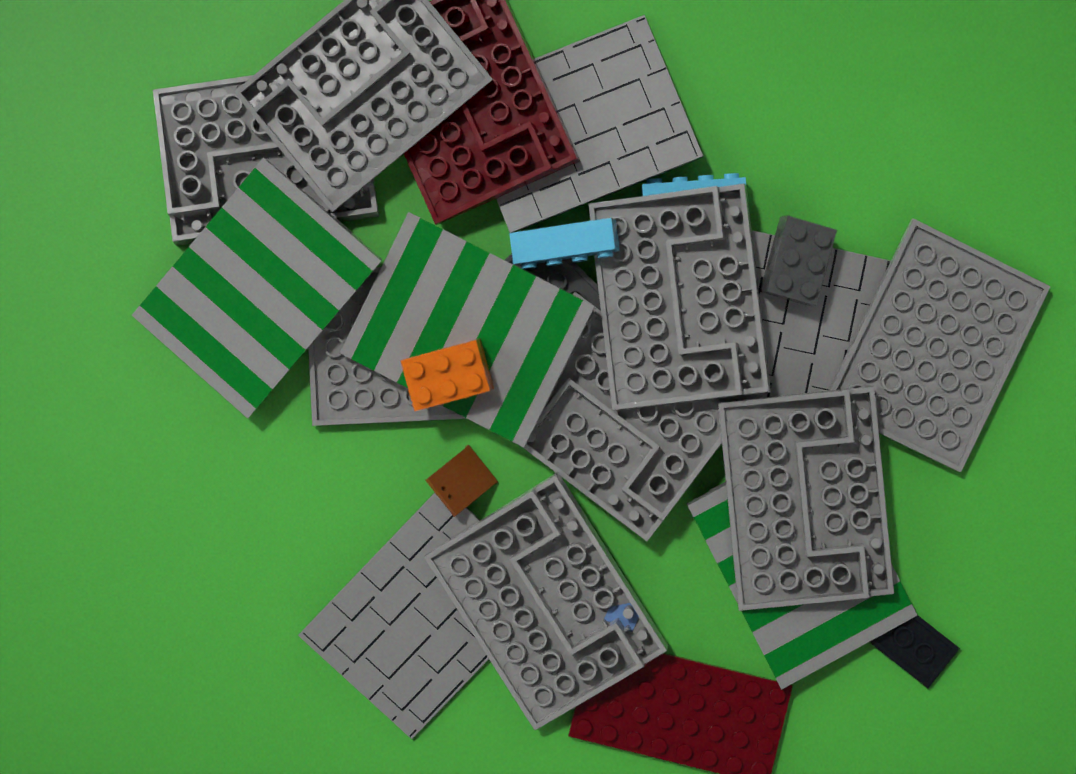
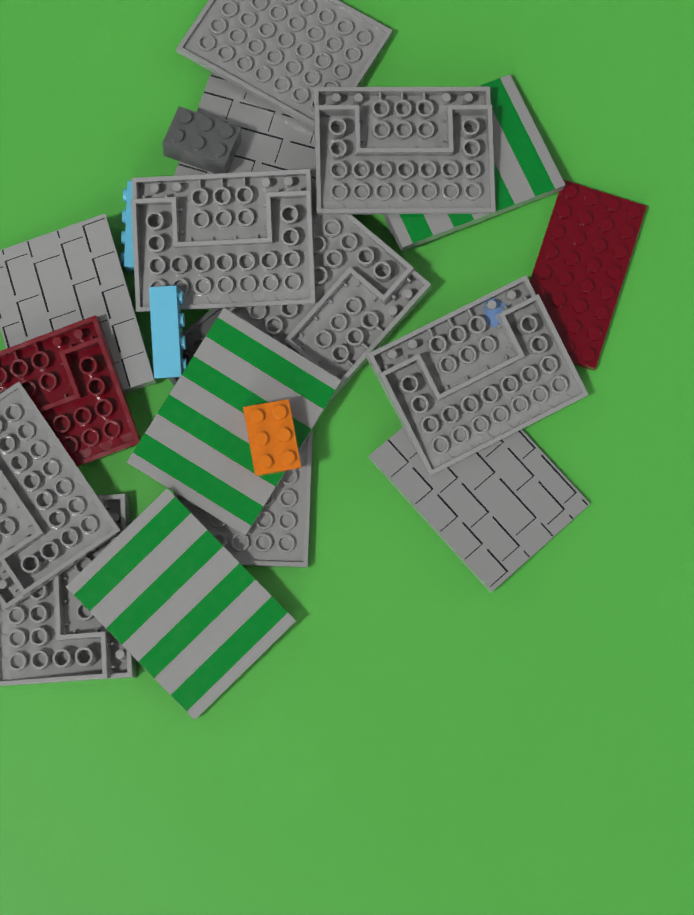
camera: 85 degrees left, 10 degrees down
(462, 480) = (366, 439): dark orange container -> none
(917, 649) = (539, 77): black tile -> none

